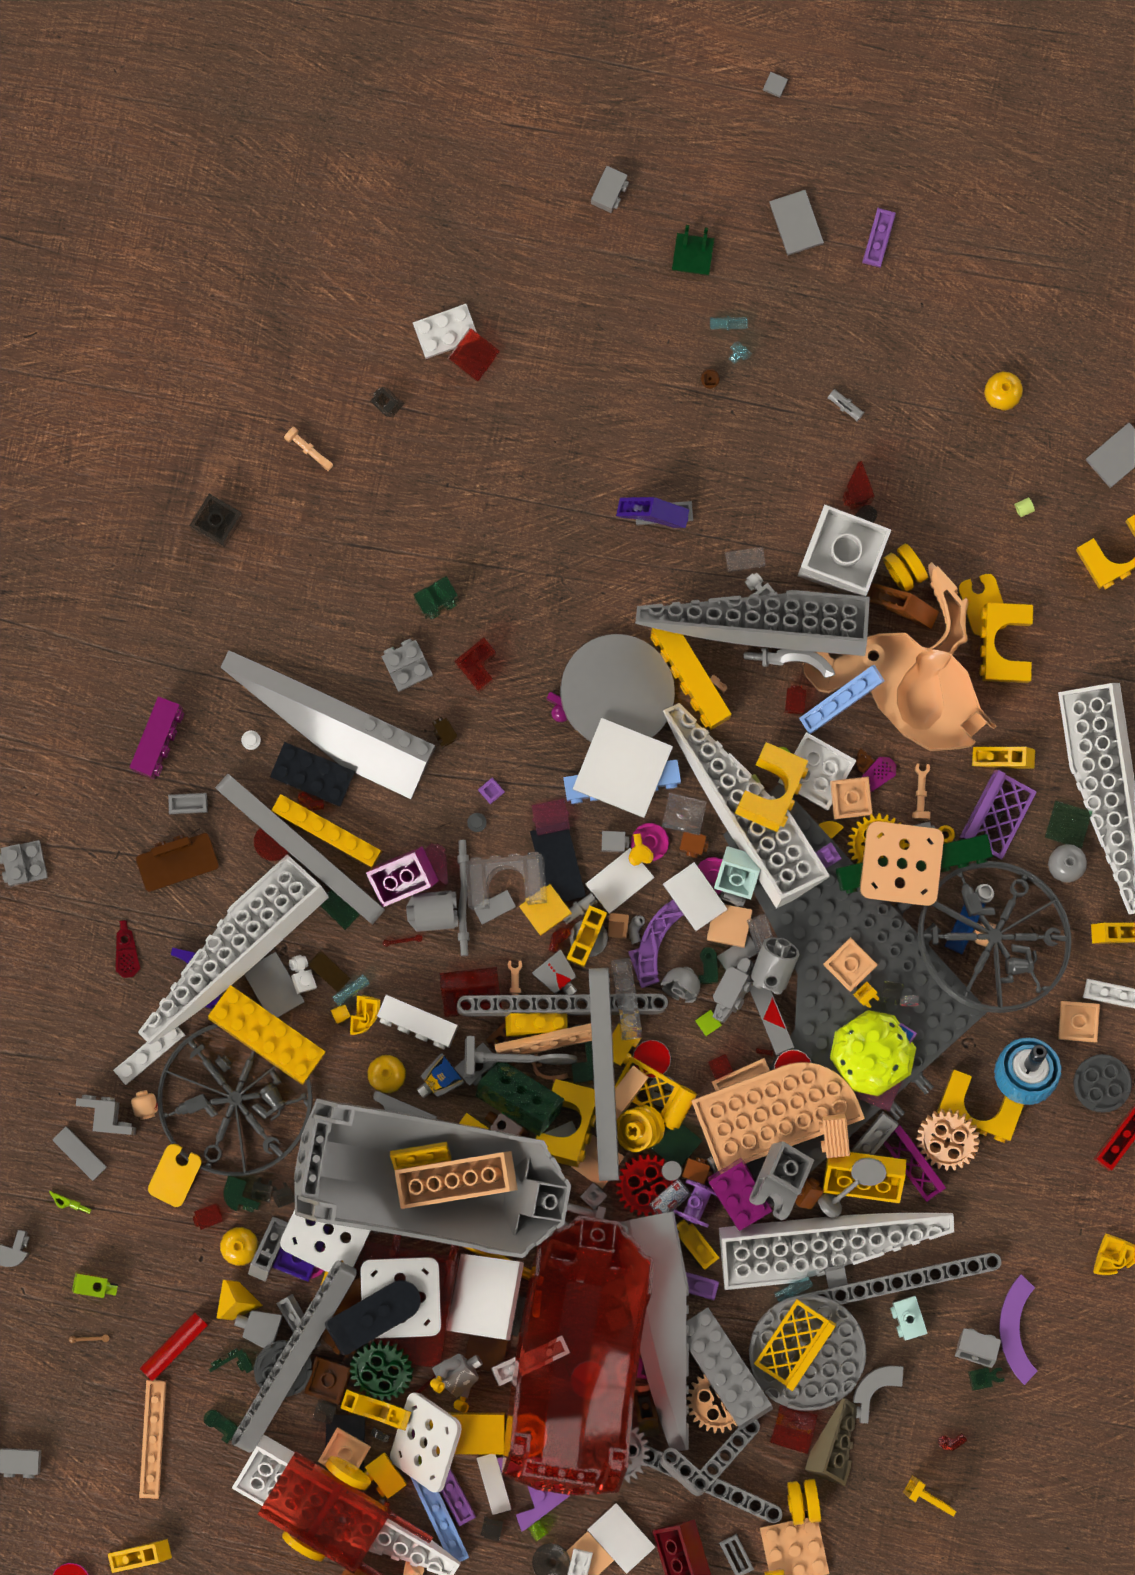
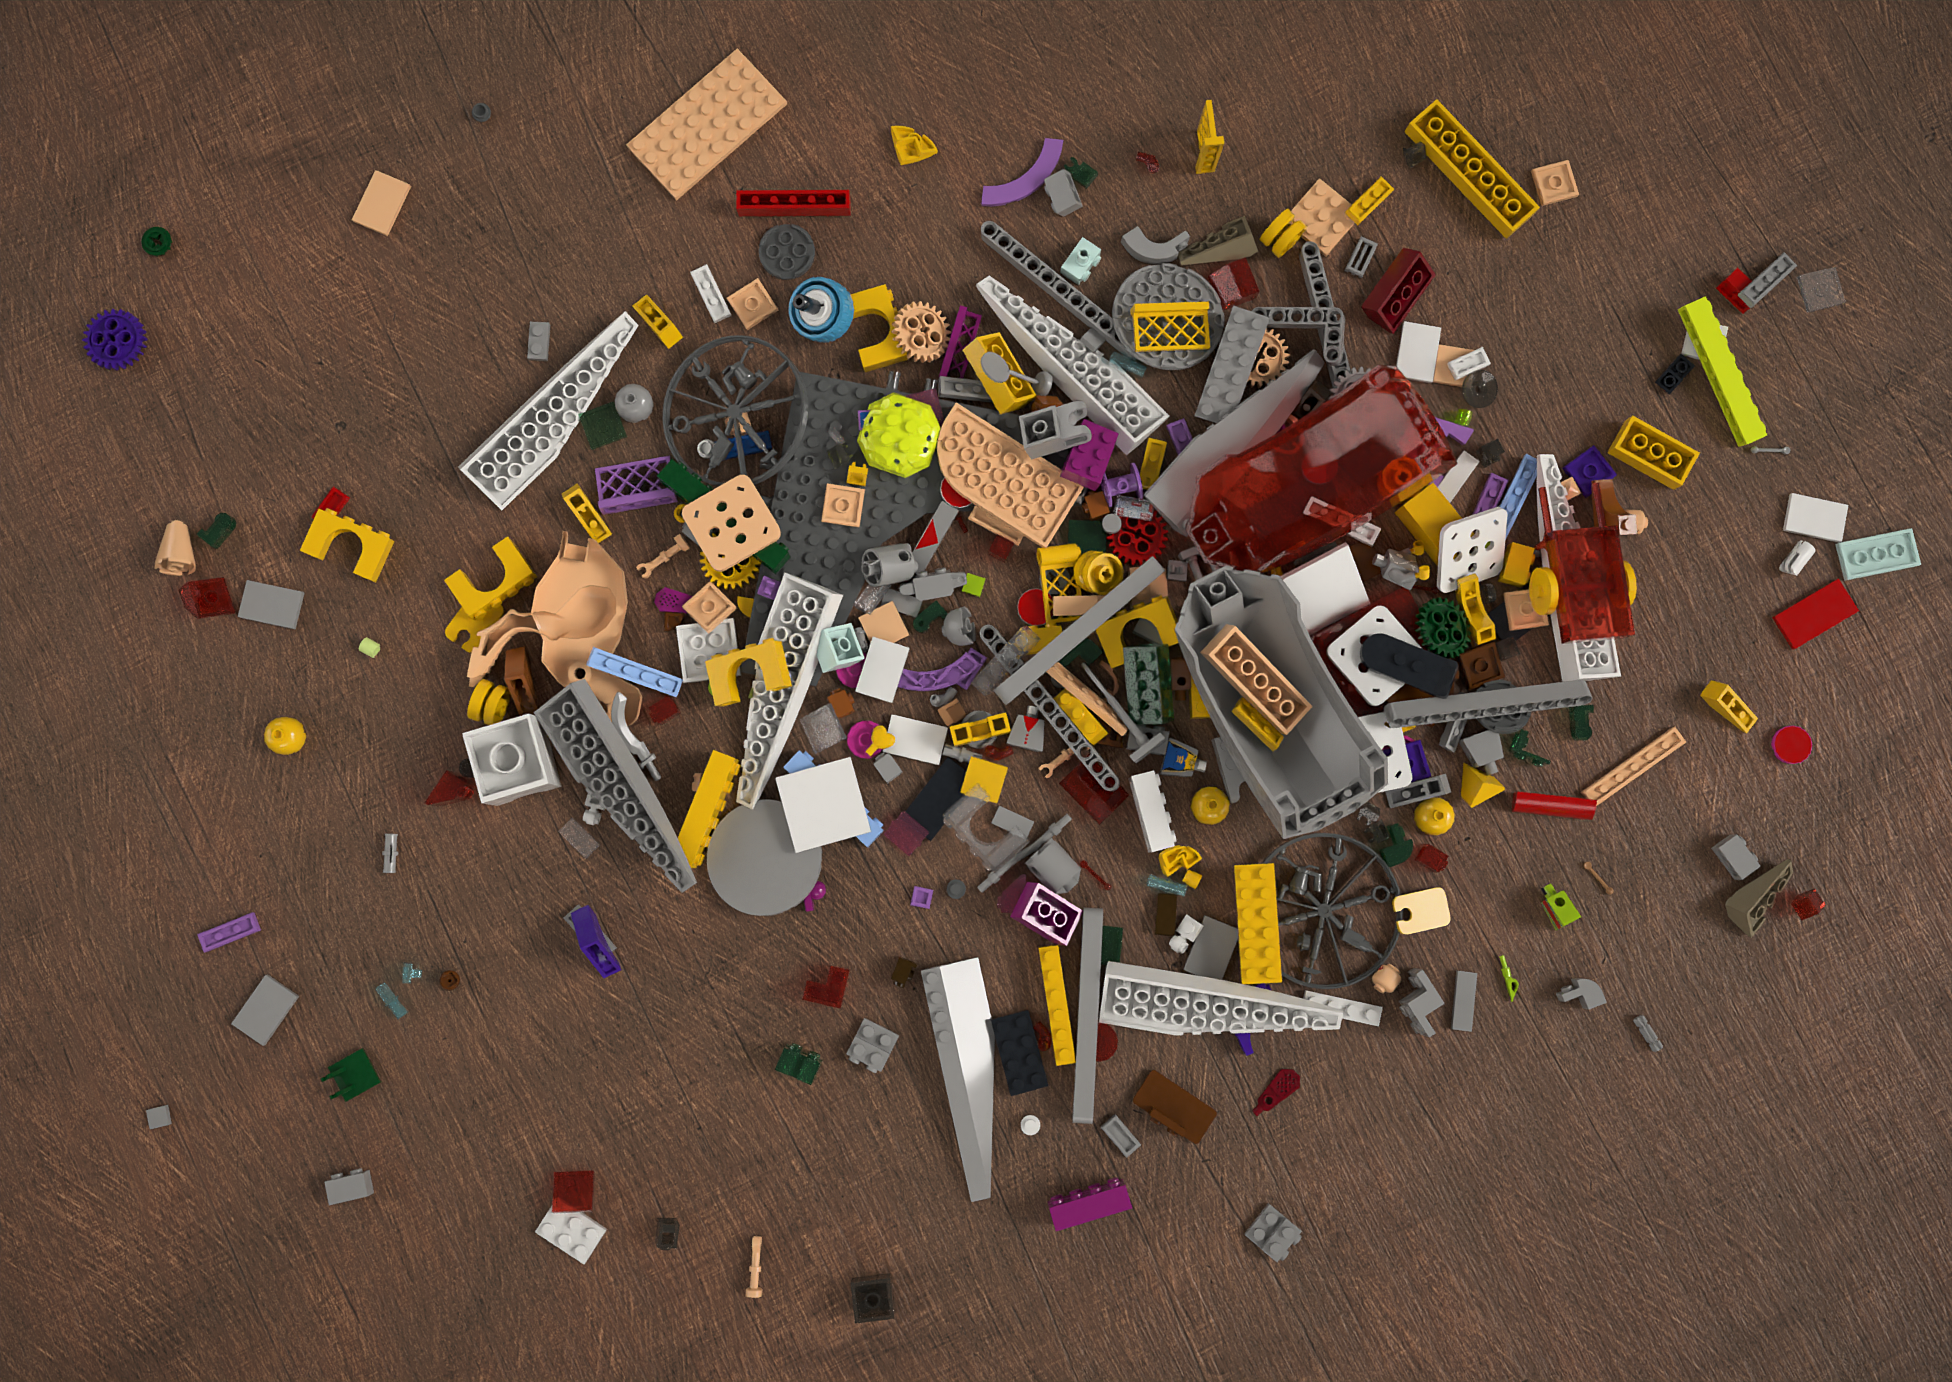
camera: 130 degrees left, 0 degrees up
(835, 1136) = (987, 413): light nougat brick -> none

